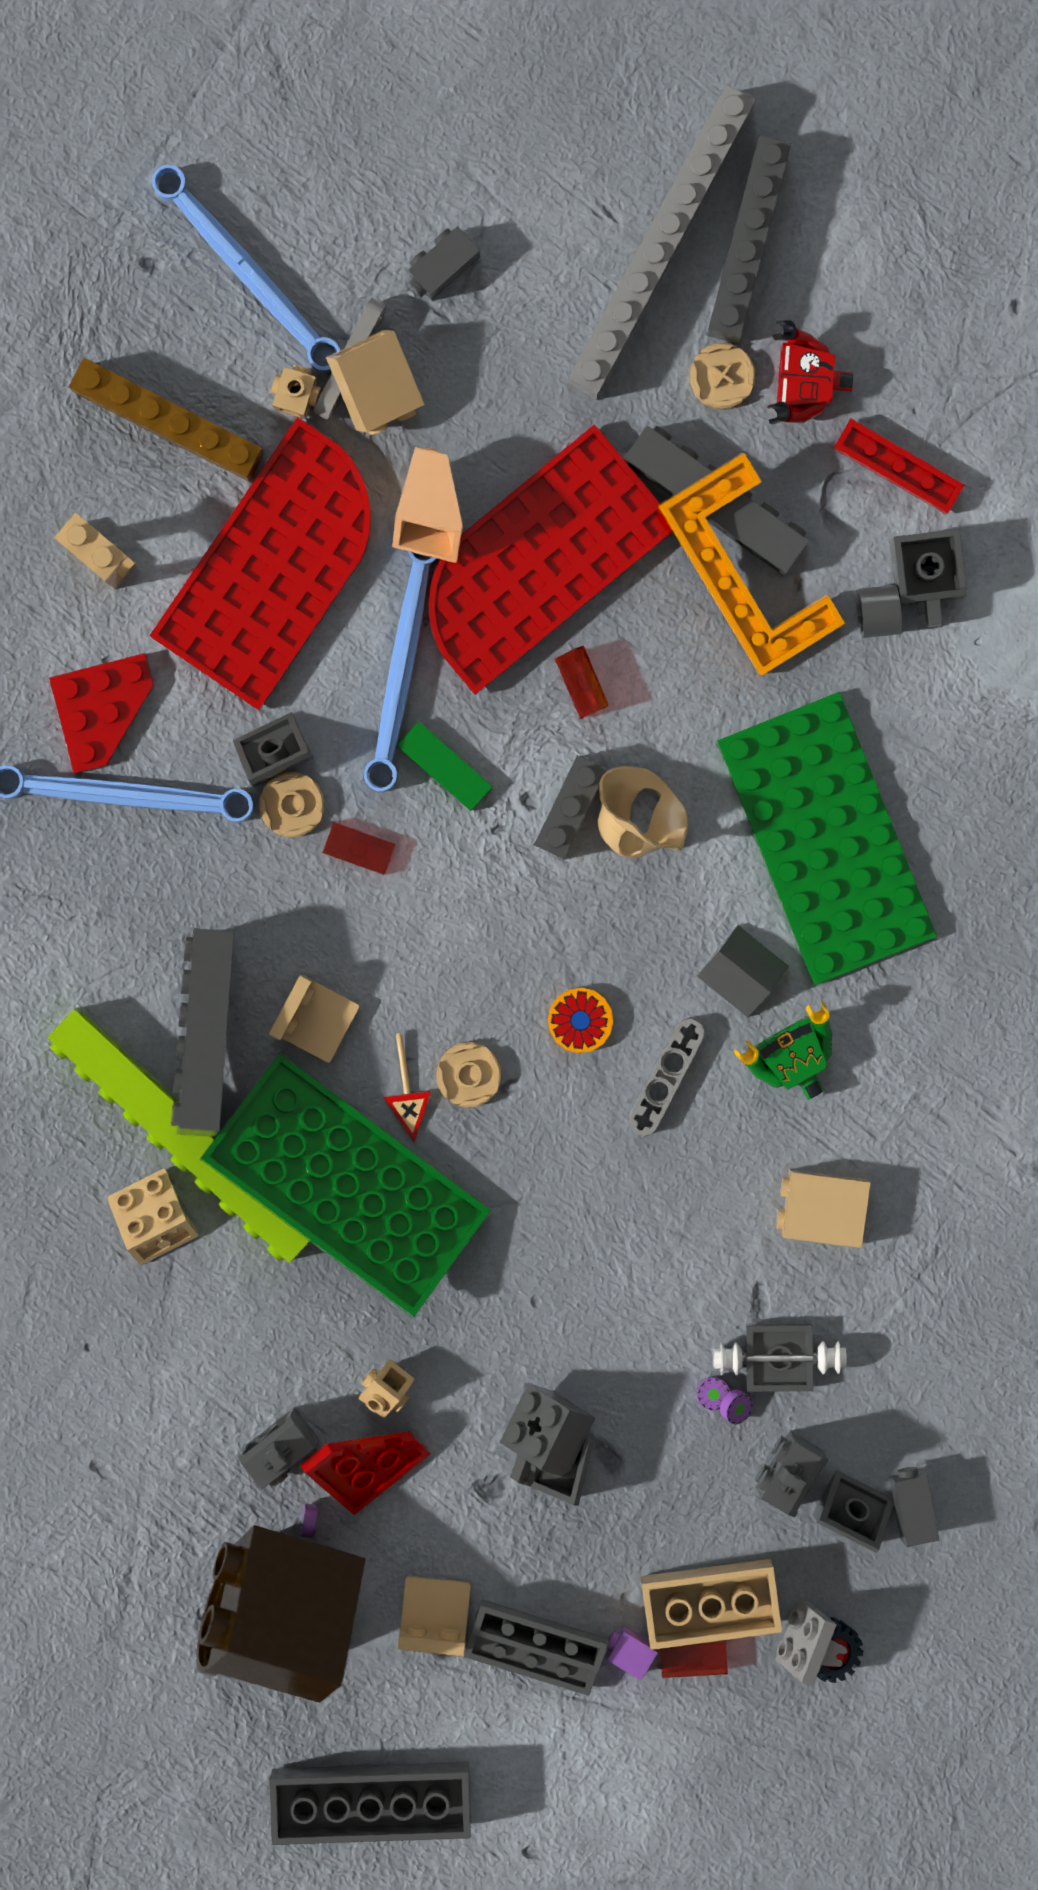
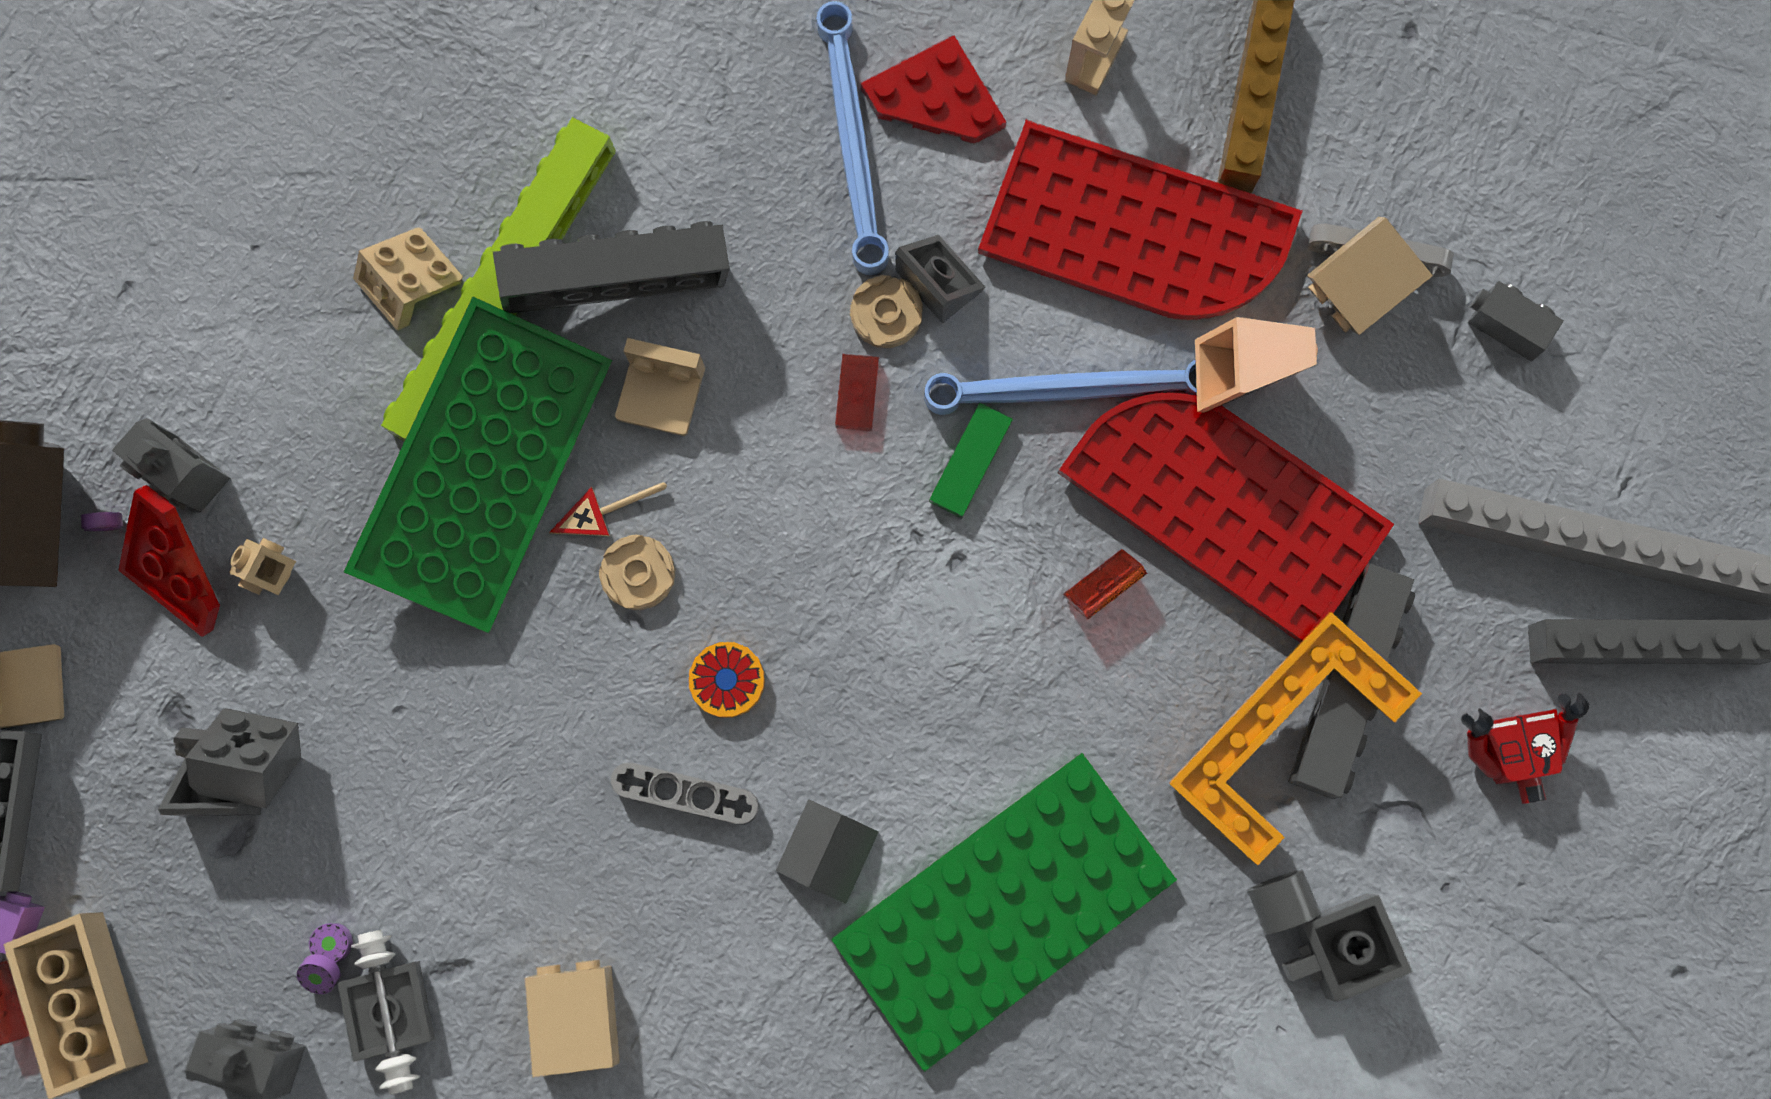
camera: 75 degrees right, 10 degrees down
(244, 266) = (1445, 115): light blue piece -> none
(295, 403) = (1328, 200): tan brick -> none
(570, 807) = (962, 605): dark grey brick -> none
(617, 794) = (986, 652): tan piece -> none
(722, 376) = (1490, 654): tan tile -> none
(793, 1054) = (744, 934): torso -> none
(898, 466) = (1454, 882): red plate -> none

